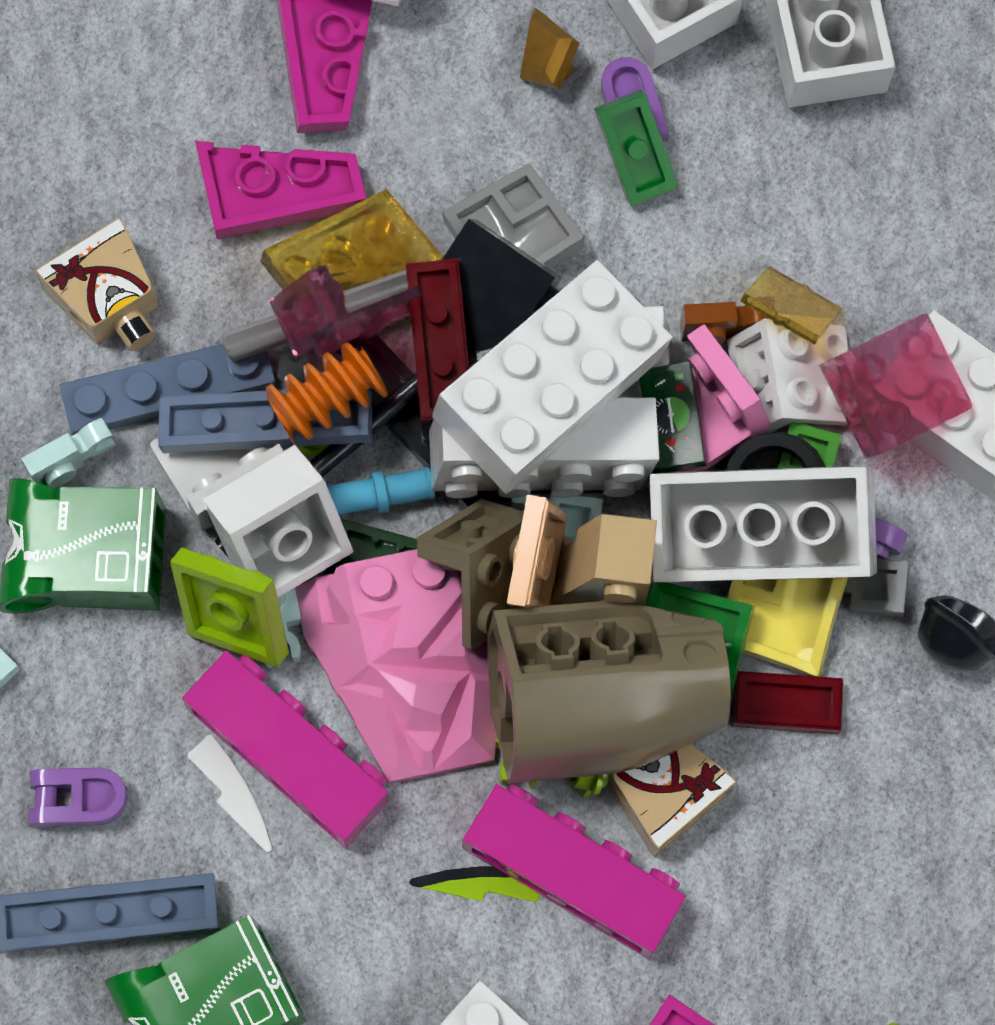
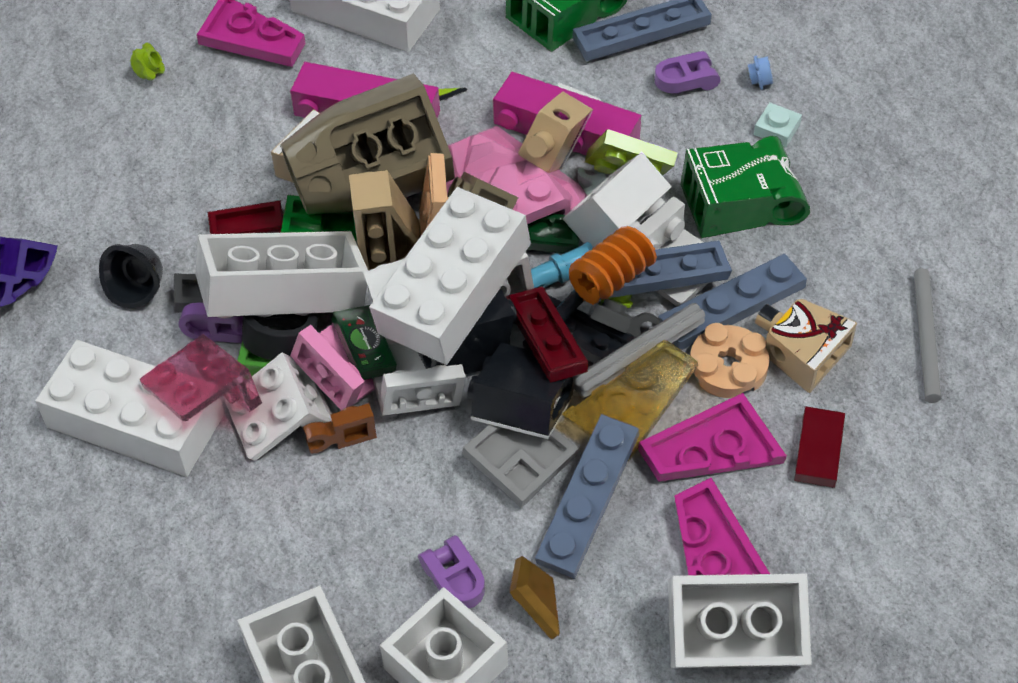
camera: 170 degrees right, 20 degrees down
(59, 459) = (784, 233): light aqua plate -> none
(147, 151) = (819, 447): none -> dark red tile
(201, 270) = (735, 342): none -> light nougat plate
(317, 319) = (615, 316): clear pink bracket -> none
(325, 674) = (553, 138): none -> tan torso
(449, 151) = (587, 496): none -> sand blue plate
(636, 147) = (441, 525): green plate -> none
(791, 305) = (291, 443): clear yellow piece -> none

